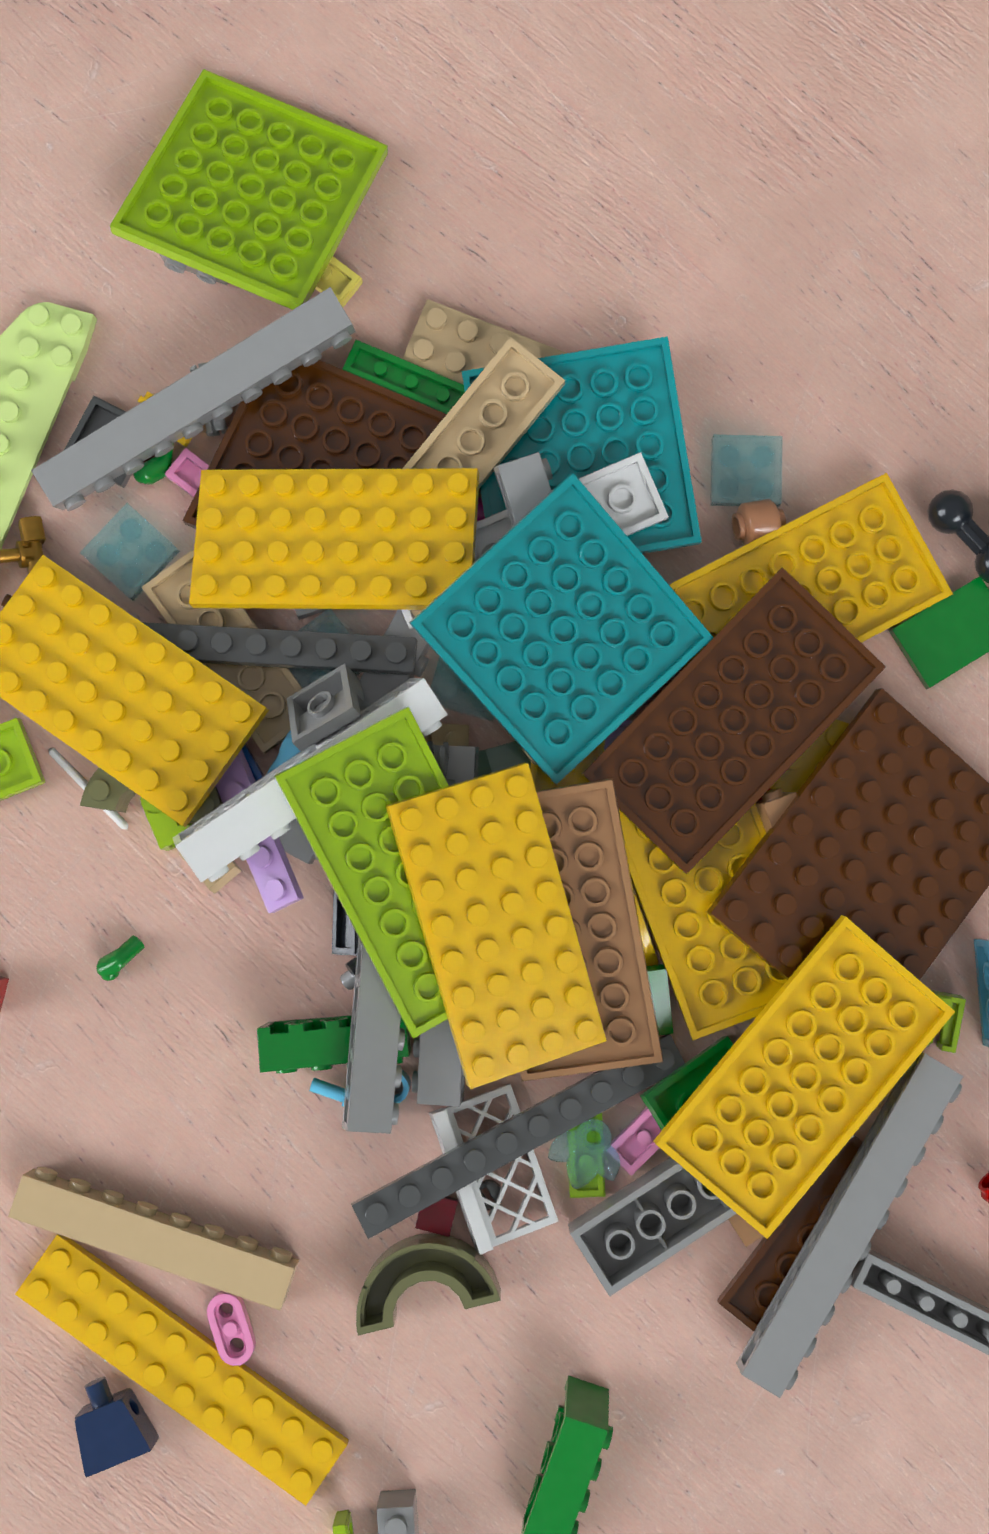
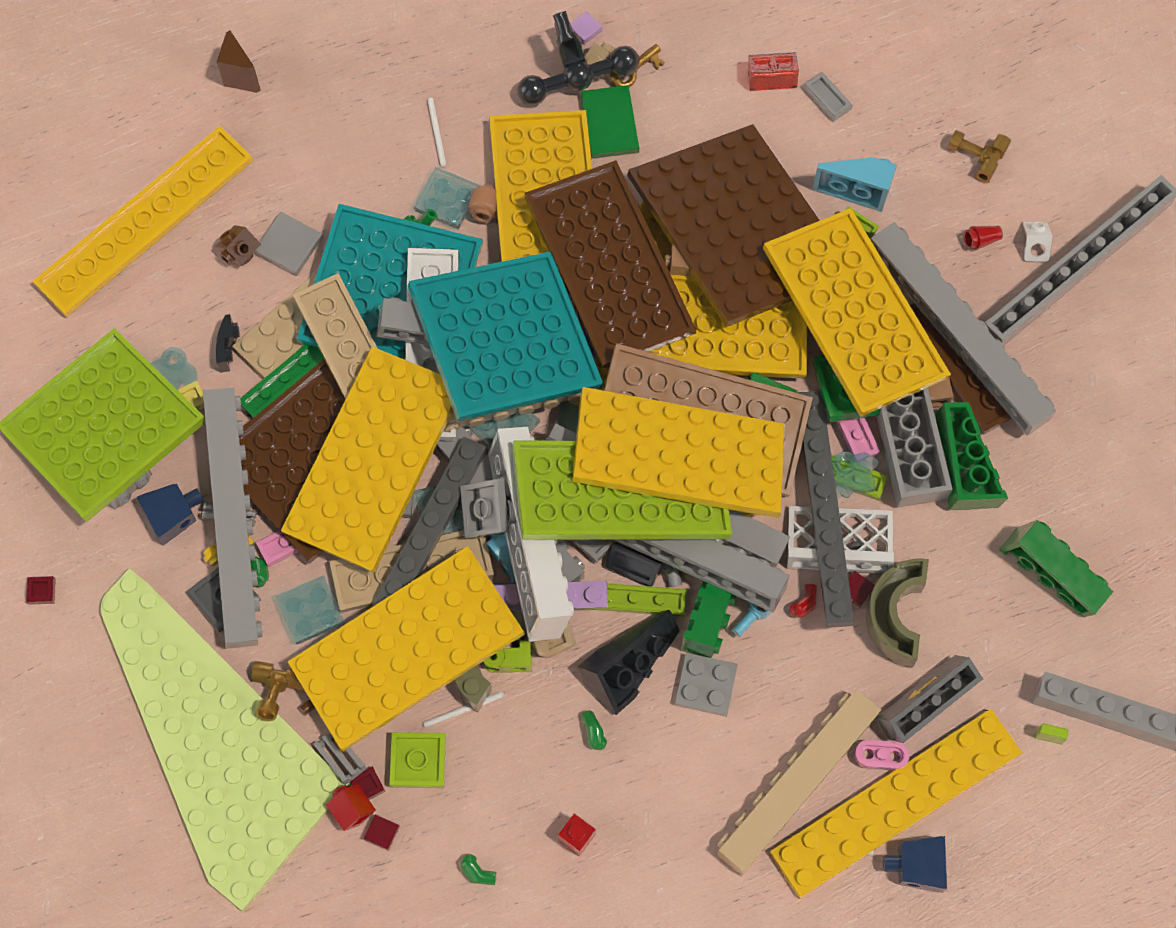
camera: 75 degrees left, 15 degrees down
(28, 226) = (40, 590): none -> dark red tile
(181, 326) = (169, 510): none -> dark blue torso
(214, 959) = (621, 666): none -> black wedge
(232, 1074) = (706, 684): none -> light grey plate
(312, 947) = (644, 599): none -> lime tile
(322, 1365) = (929, 698): none -> dark grey brick
(360, 248) = (177, 373): none -> clear light blue plate
(388, 1157) = (806, 604): none -> red arm
(437, 285) = (225, 340): none -> black slope
(548, 111) = (143, 221): none -> yellow plate
(559, 240) = (237, 245): none -> reddish brown brick
(596, 302) = (288, 243): none -> light grey tile
(667, 1296) = (967, 459): none -> green wedge
(696, 456) = (427, 219): none -> green arm
(808, 114) = (236, 67): none -> reddish brown slope
(837, 416) = (436, 132): none -> white axle

